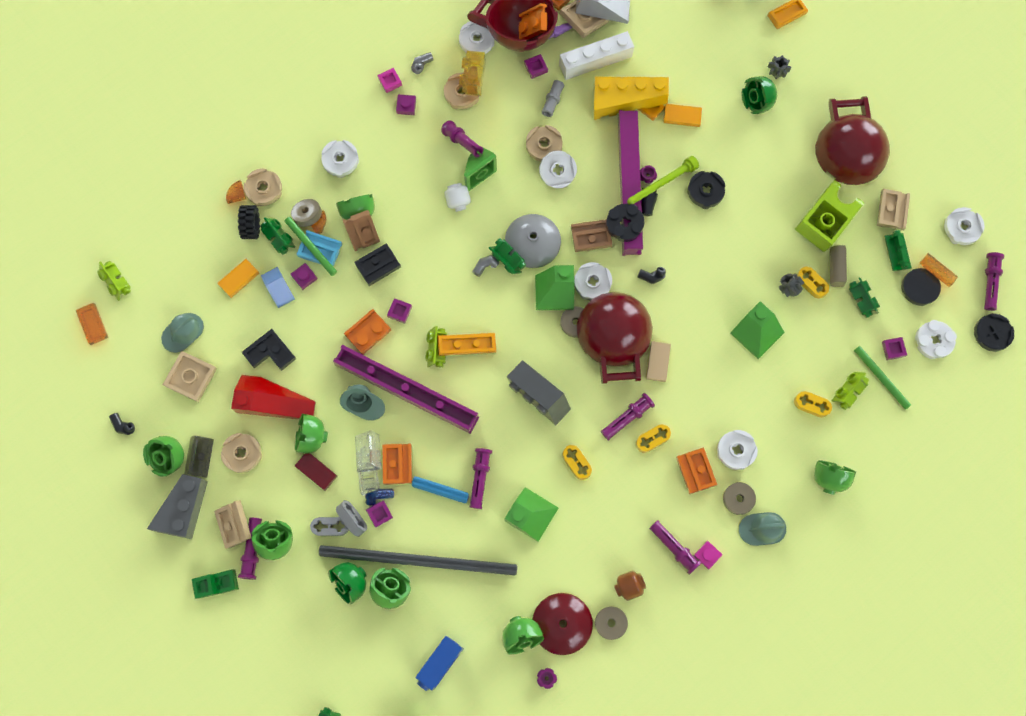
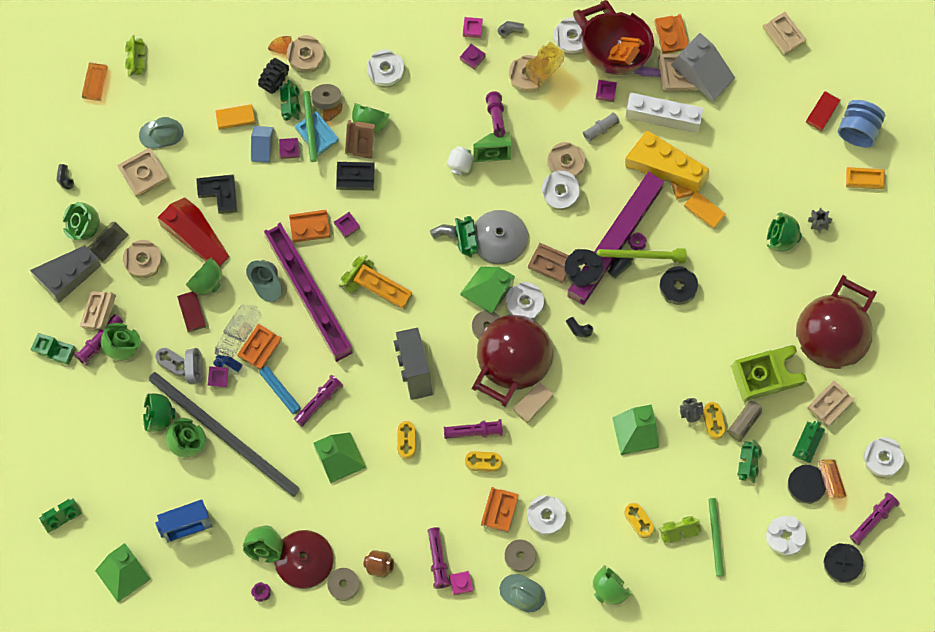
camera: 35 degrees right, 5 degrees down
(894, 348) = (743, 519): magenta plate -> none

